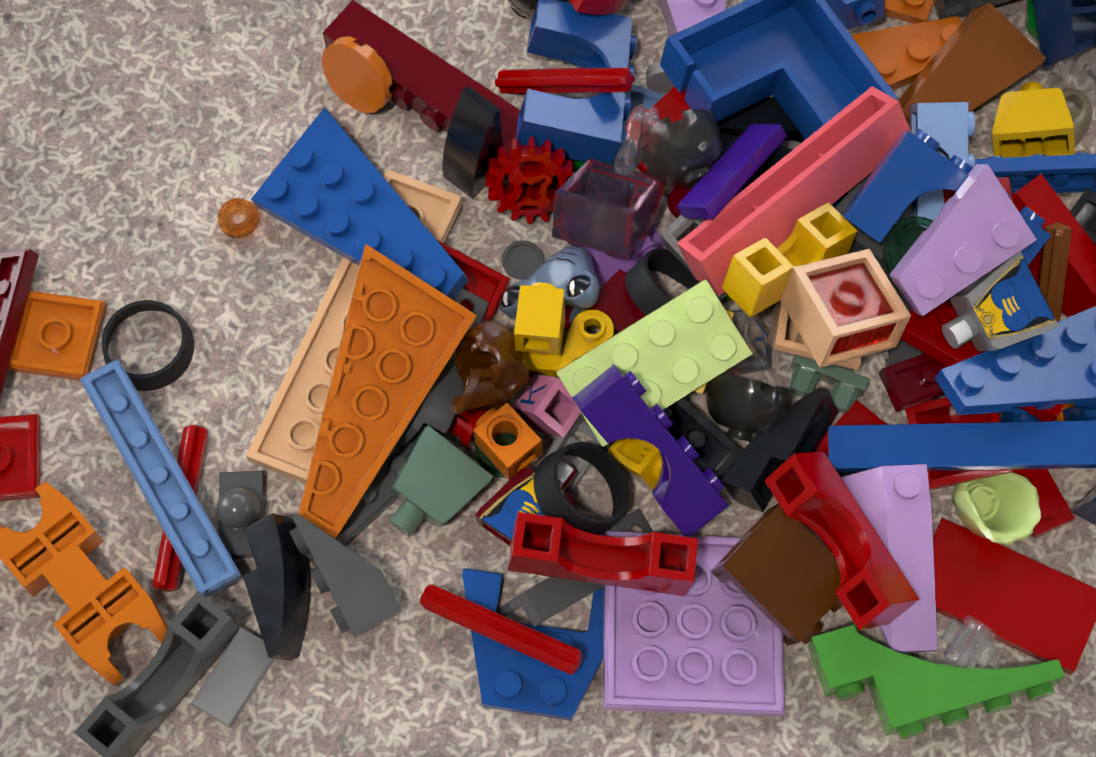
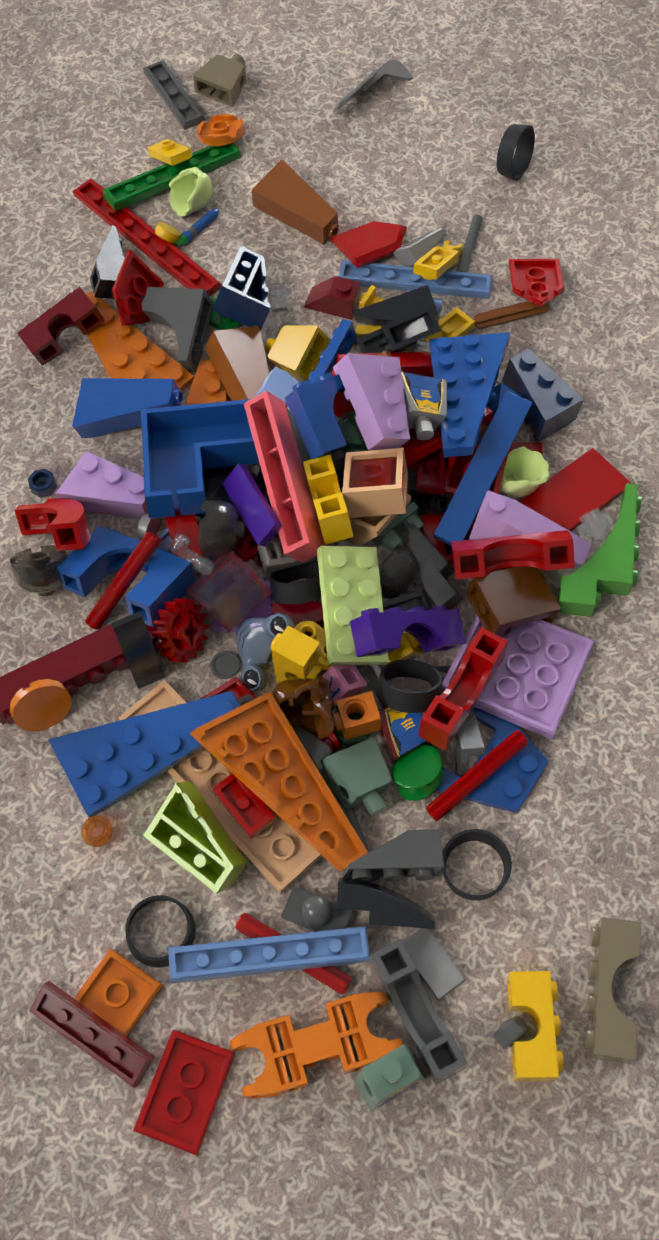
camera: 65 degrees left, 5 degrees down
(66, 679) = (389, 1077): none -> sand green torso
(265, 328) = (195, 838): none -> lime wedge
(317, 371) = (244, 806): none -> red plate
(366, 639) = (485, 837): none -> black tyre
(472, 554) = (418, 773): none -> green piece
(881, 407) = (432, 504): none -> black pin

